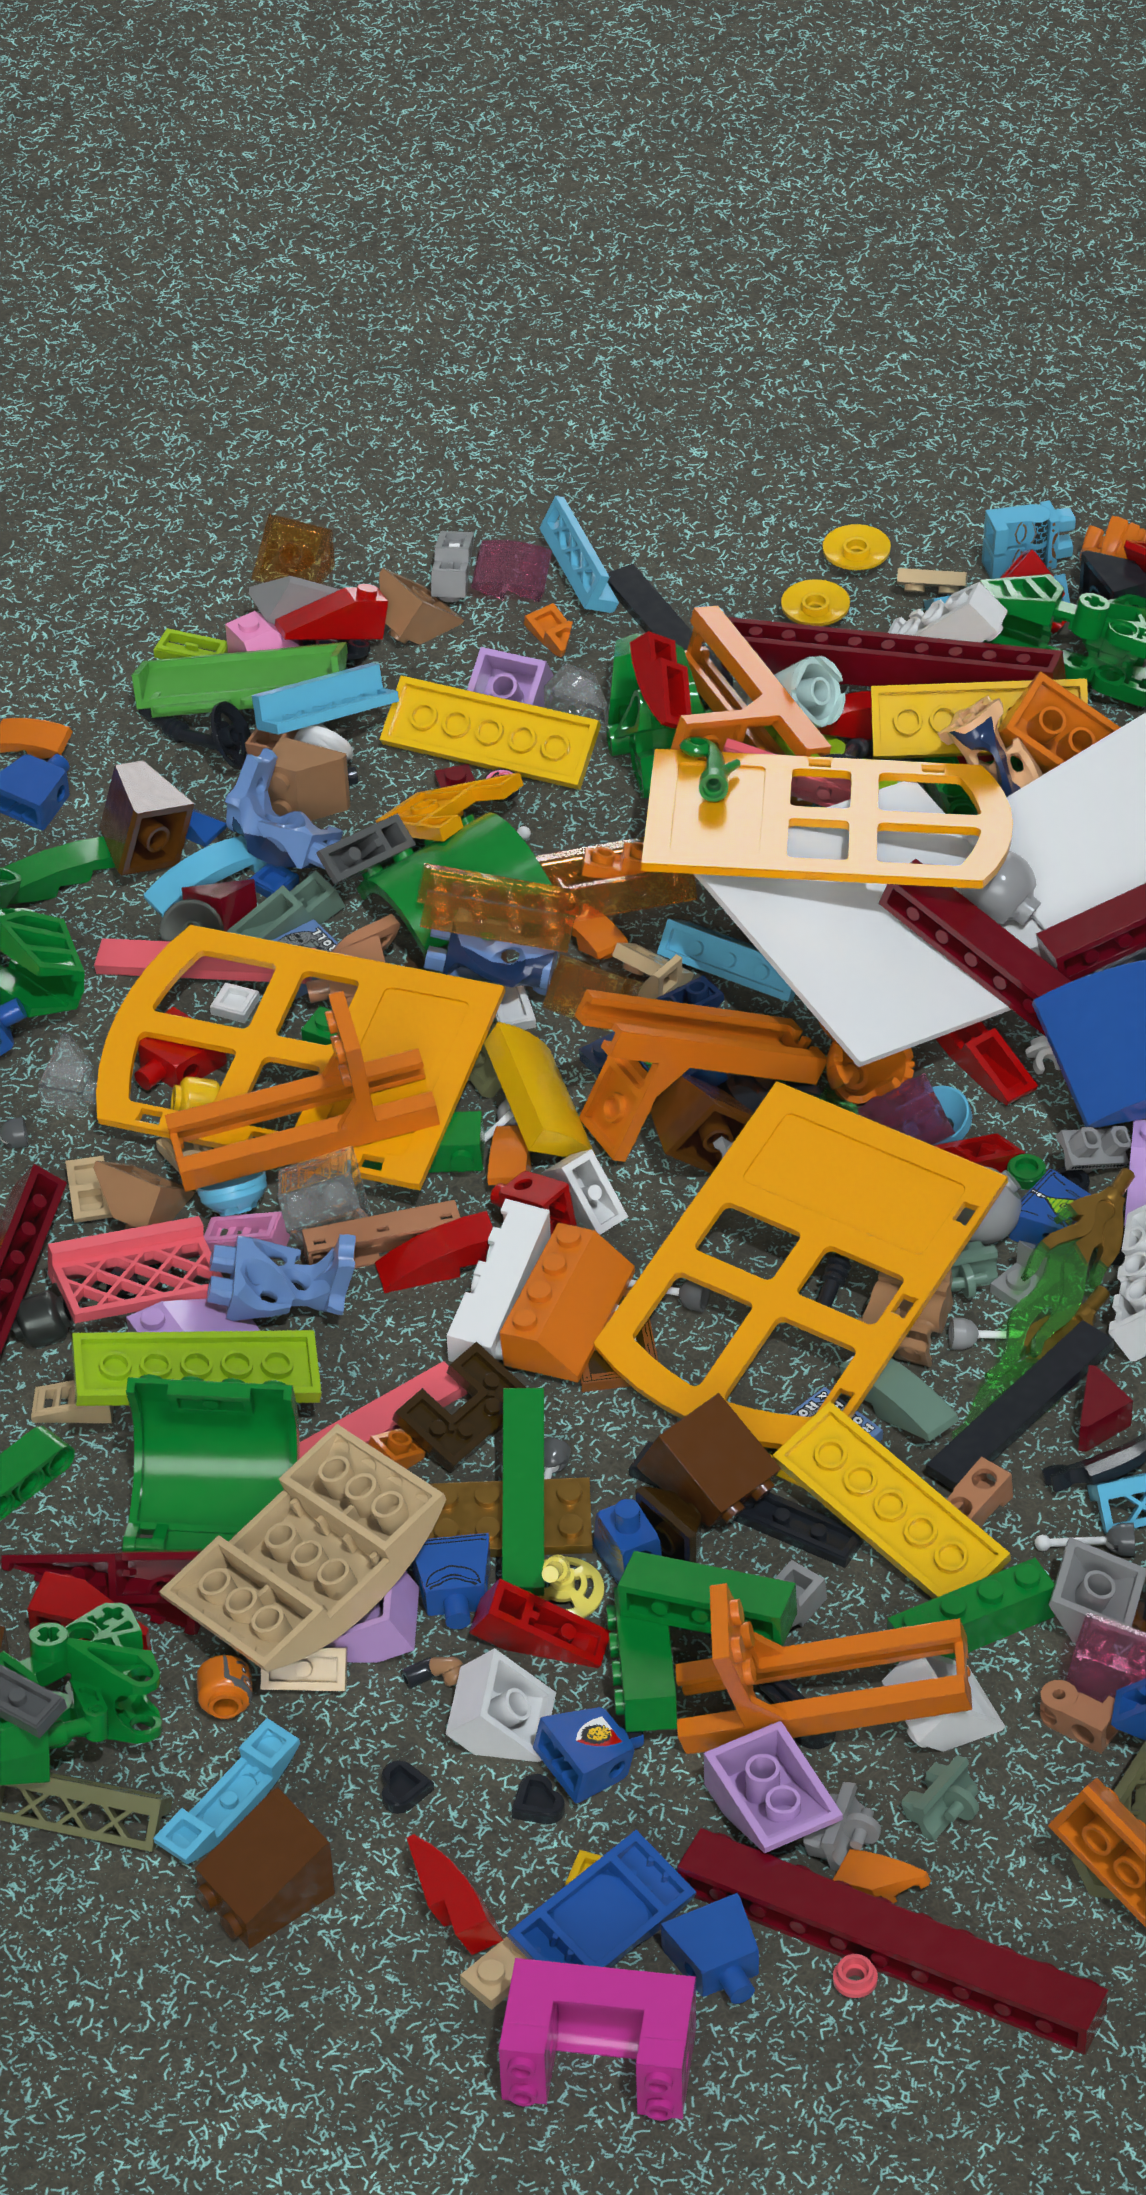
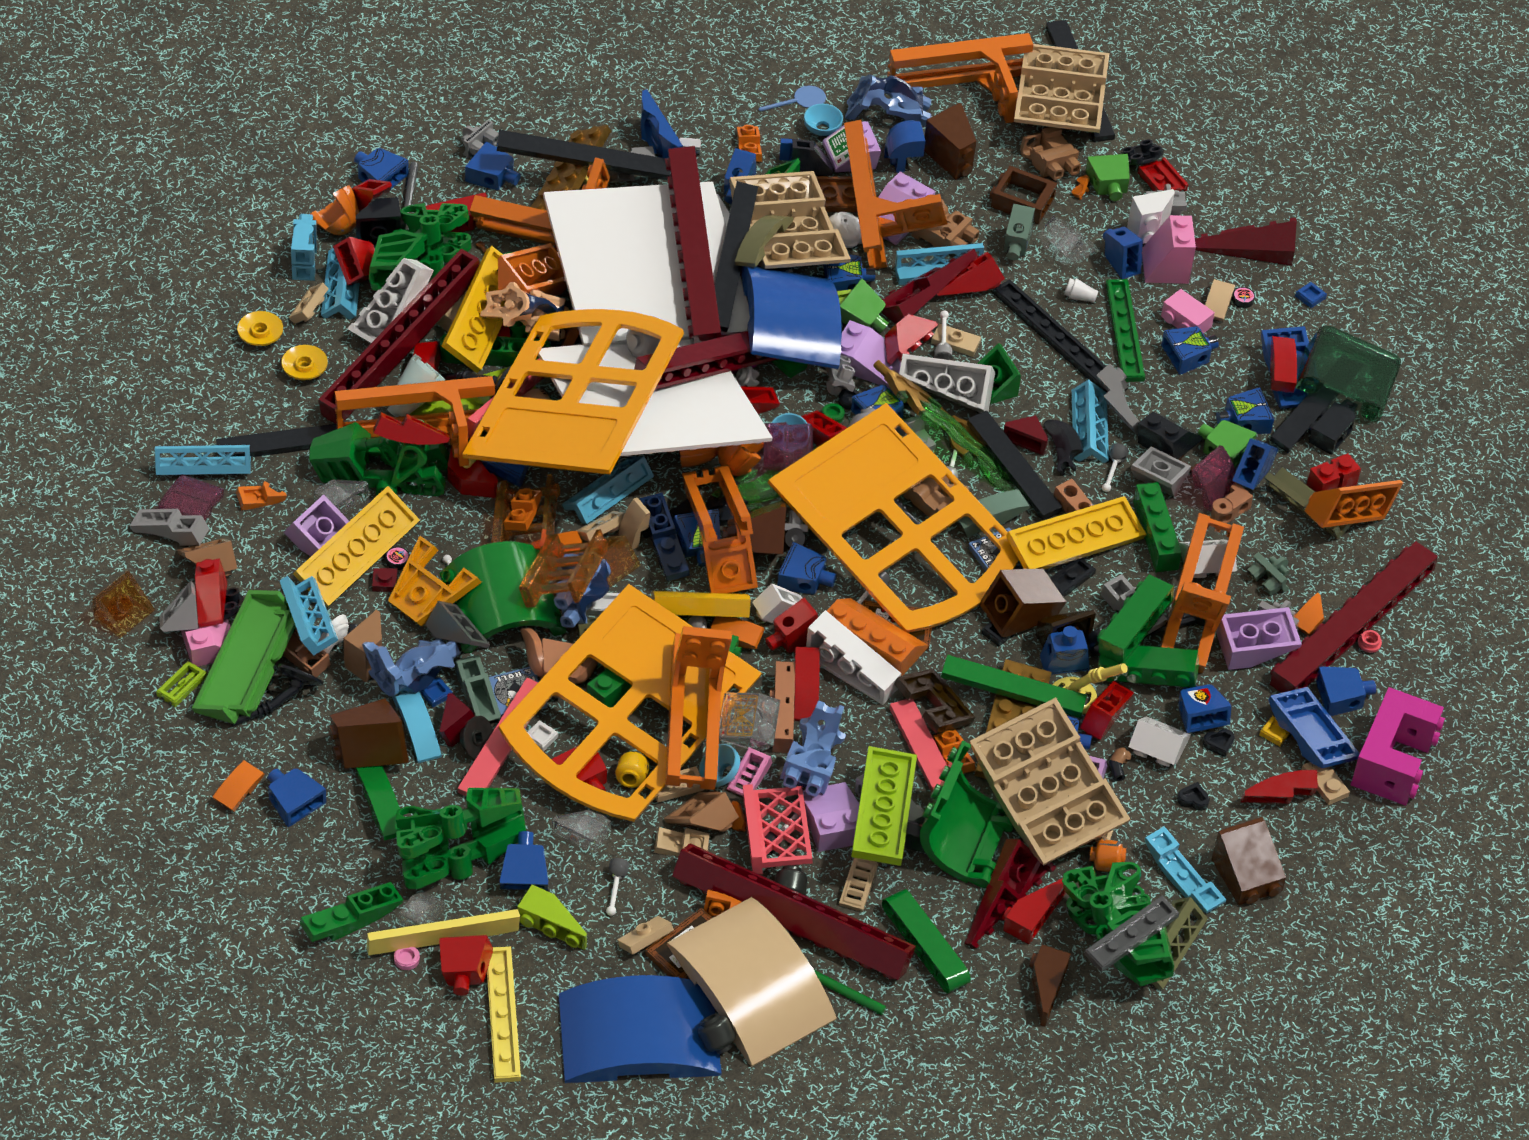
camera: 80 degrees left, 5 degrees up
(662, 1196) = (804, 571): none -> blue torso
(714, 780) = (532, 426): green plant -> none

